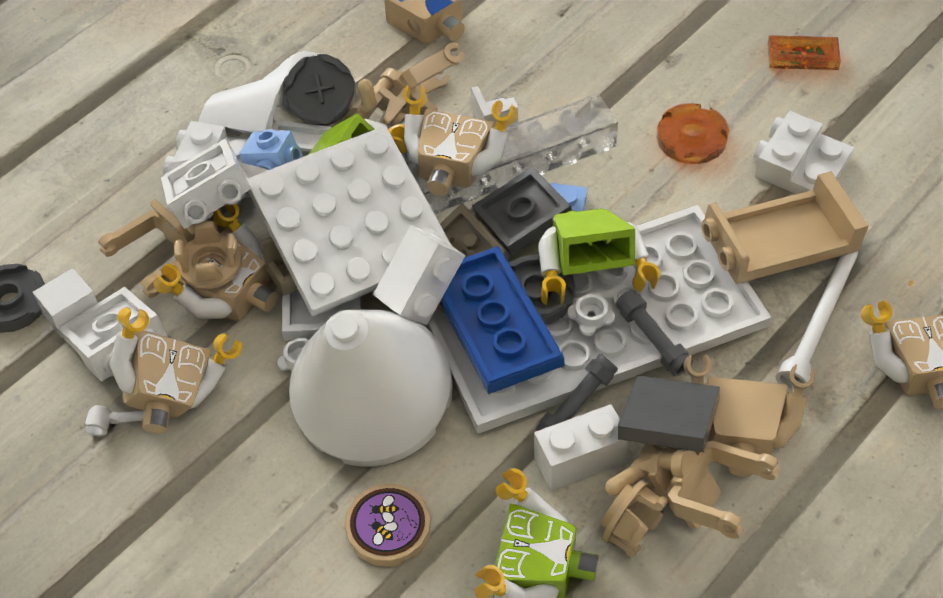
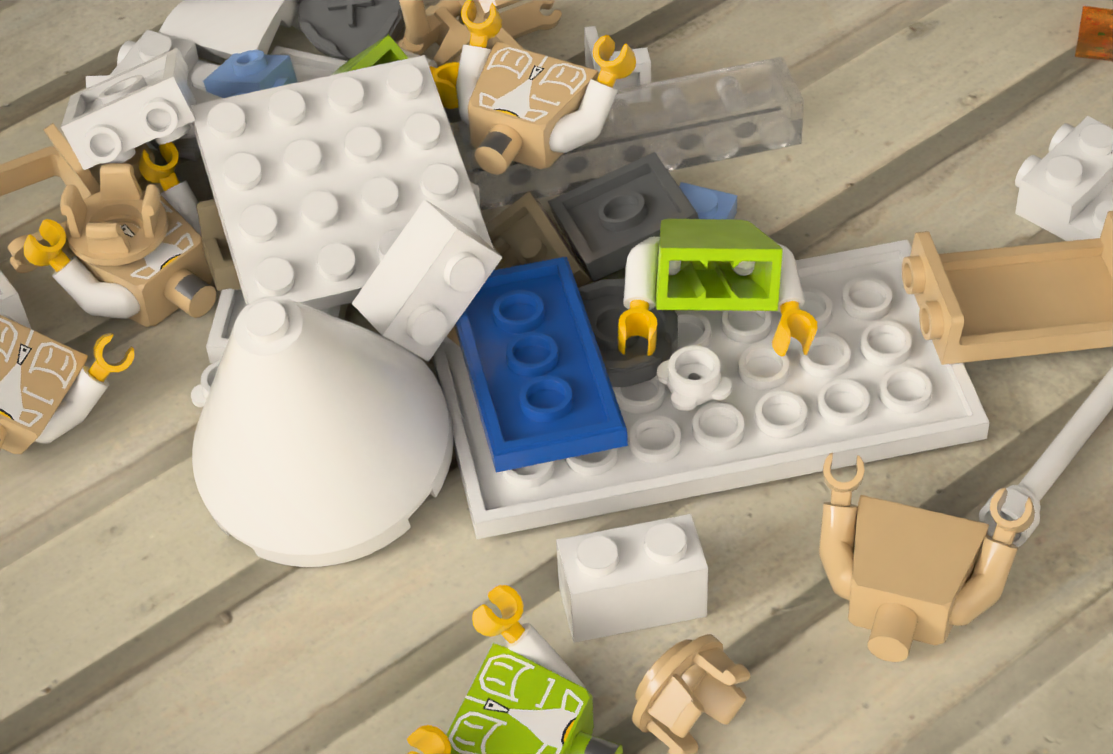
camera: 10 degrees right, 5 degrees down
(388, 525) = (300, 655): tile -> none
(599, 372) = (686, 465): dark grey bar -> none
(633, 308) = (765, 380): dark grey bar -> none
(669, 413) = (779, 538): dark grey tile -> none
(688, 148) = (921, 160): clear orange tile -> none
(688, 484) = (791, 645): tan piece -> none

